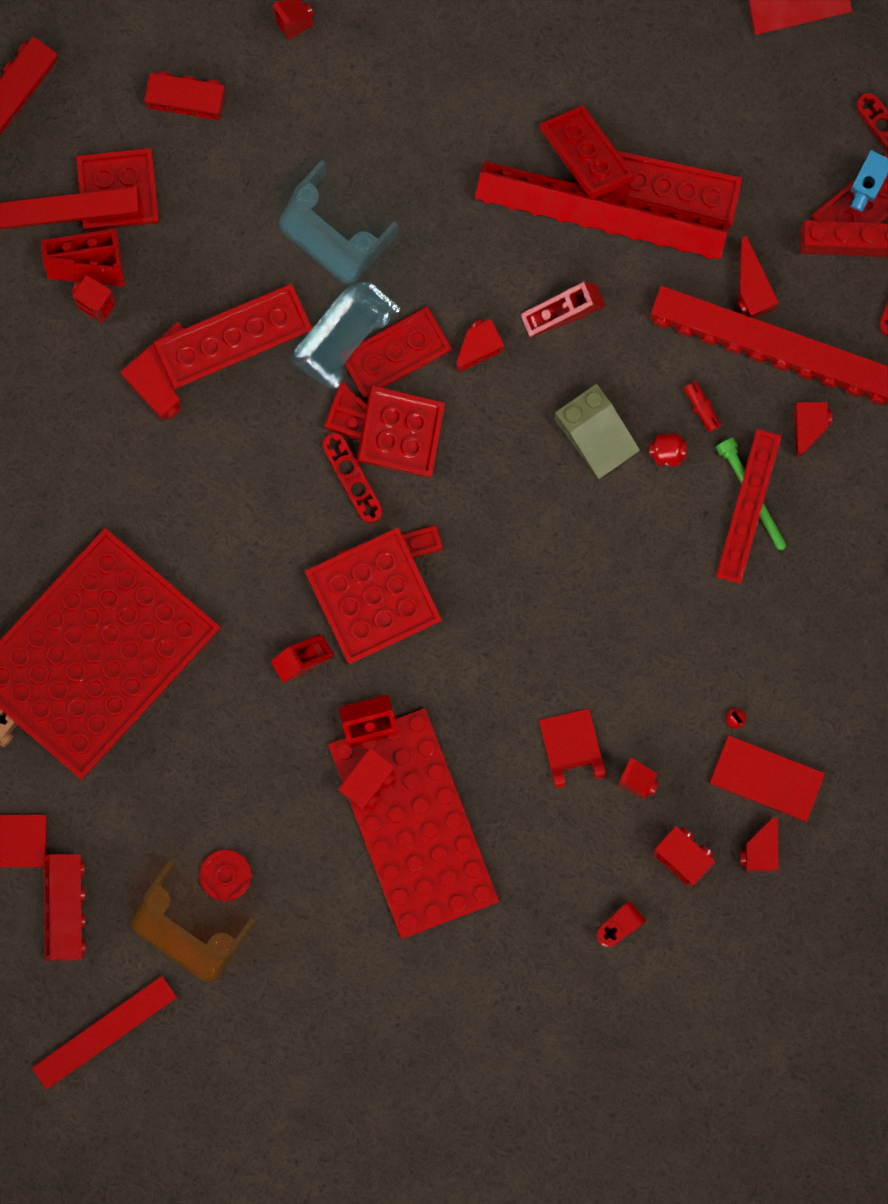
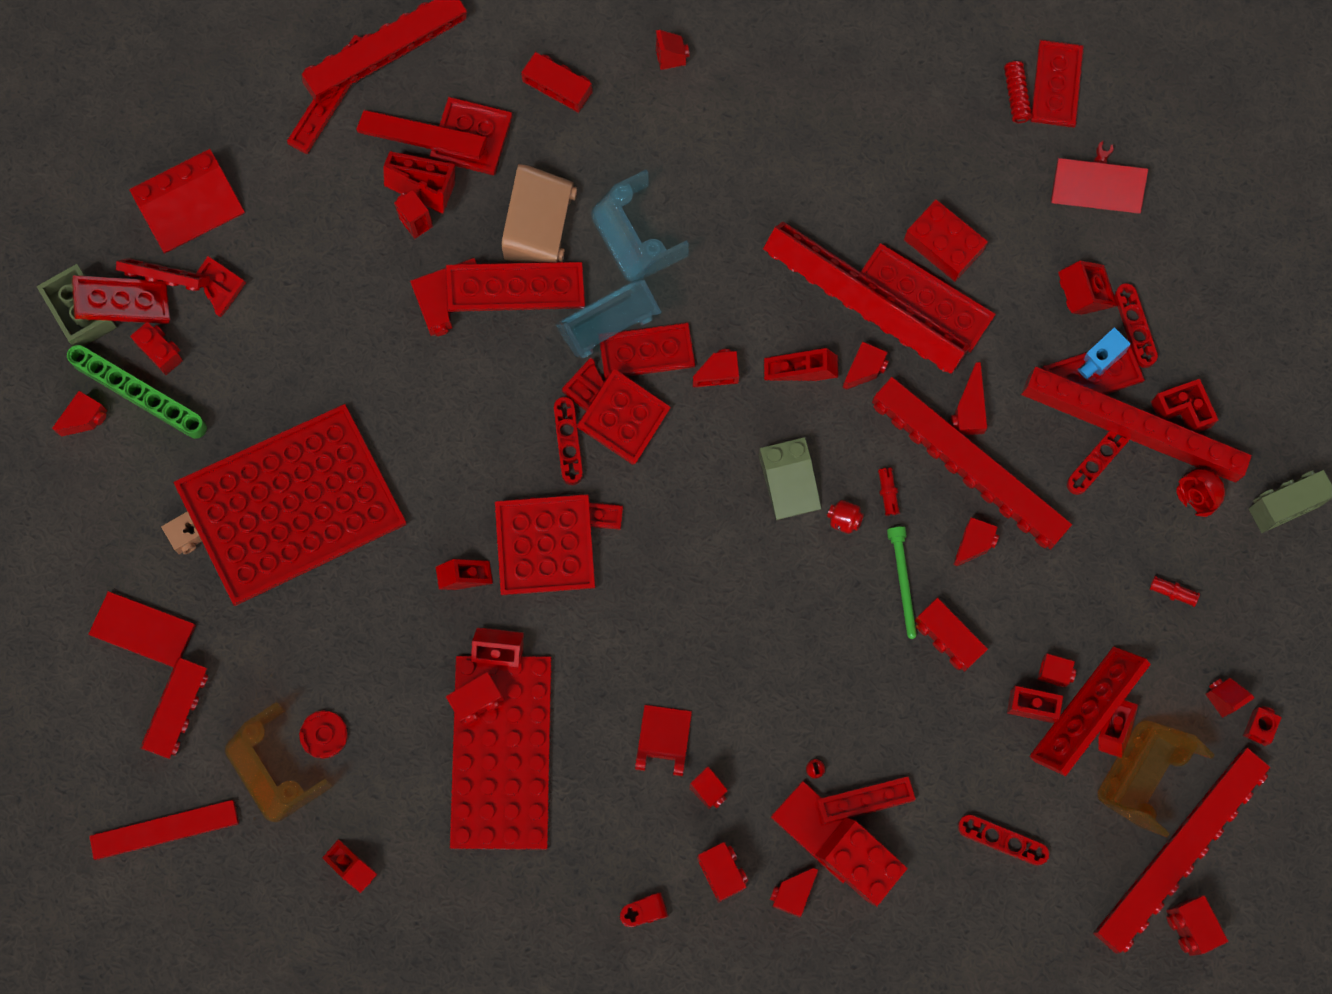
camera: 20 degrees right, 5 degrees down
(226, 252) = (536, 216): none -> nougat windscreen
(308, 995) = (349, 866): none -> red slope
(587, 152) = (871, 245): red tile -> none
(630, 282) = (866, 365): none -> red slope
(661, 117) = (945, 240): none -> red brick
(748, 506) = (896, 590): red tile -> none
(798, 730) = (865, 800): none -> red plate
(817, 792) = (861, 861): none -> red brick
(820, 532) = (950, 635): none -> red brick
(826, 114) = (1086, 288): none -> red slope

